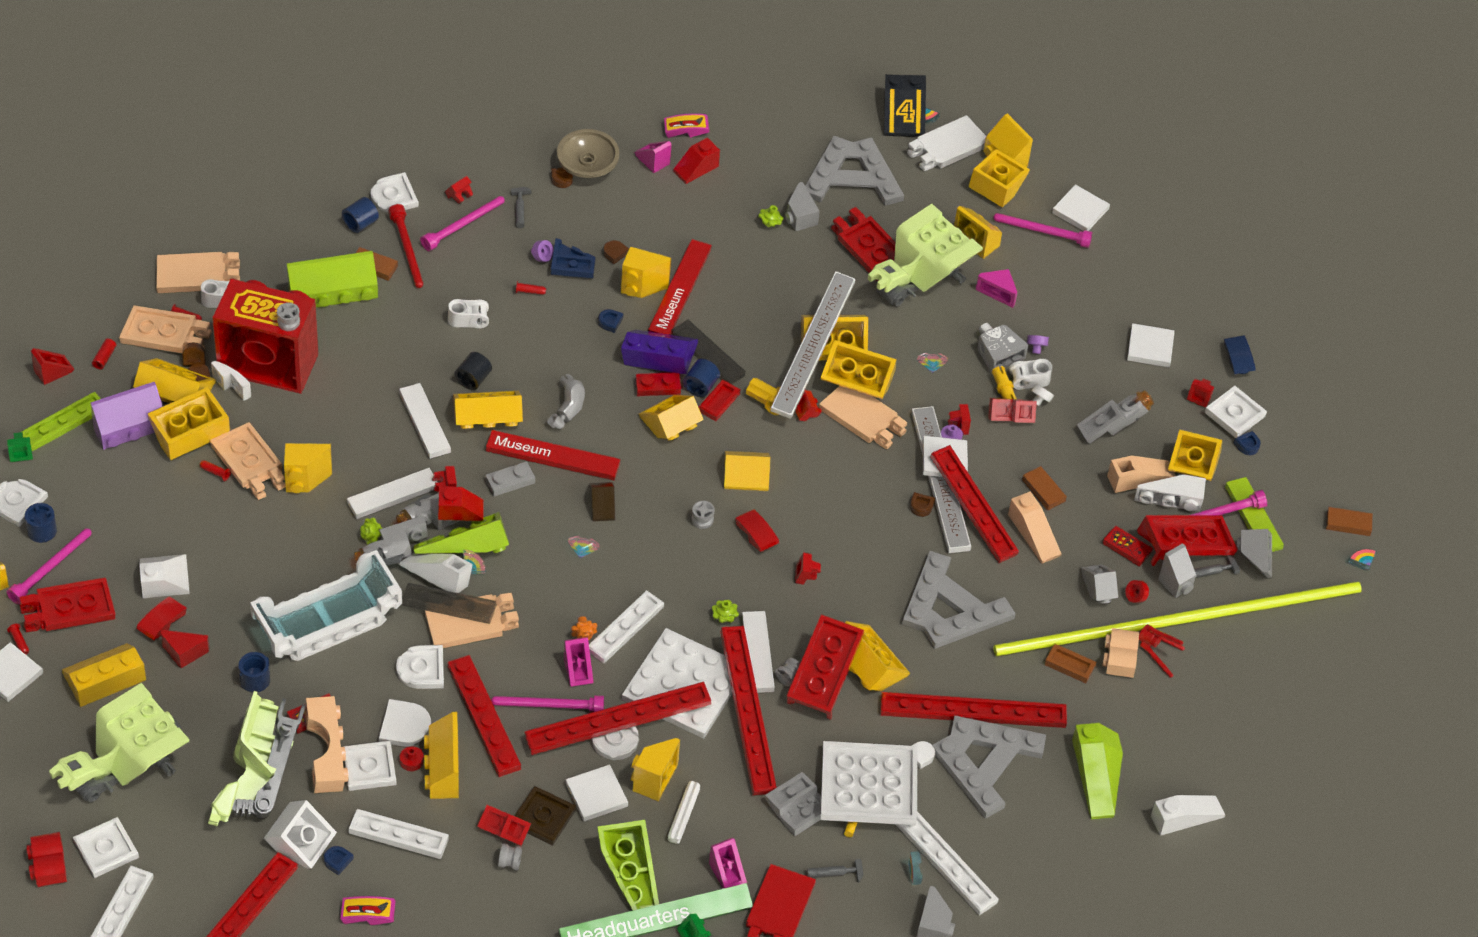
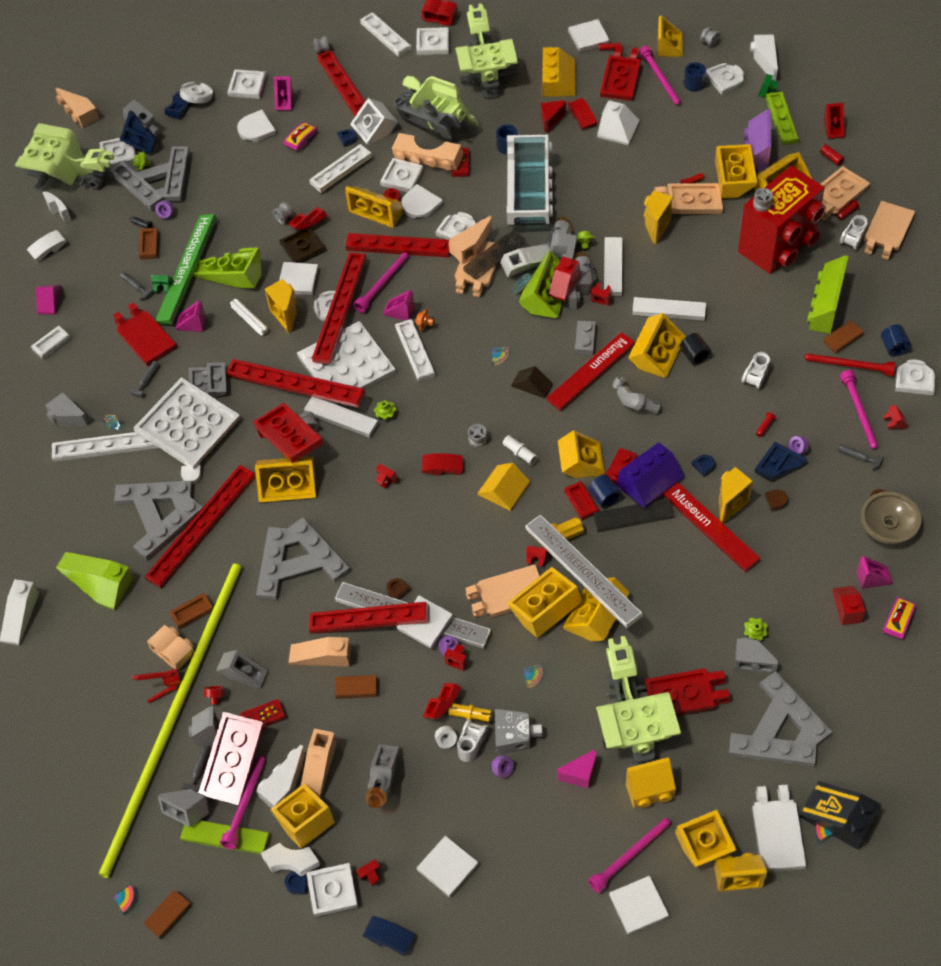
camera: 130 degrees right, 5 degrees up
(447, 628) = (469, 242): none -> light nougat slope
(695, 471) = (520, 450): none -> white pin
(1240, 462) = (282, 858): none -> white tile

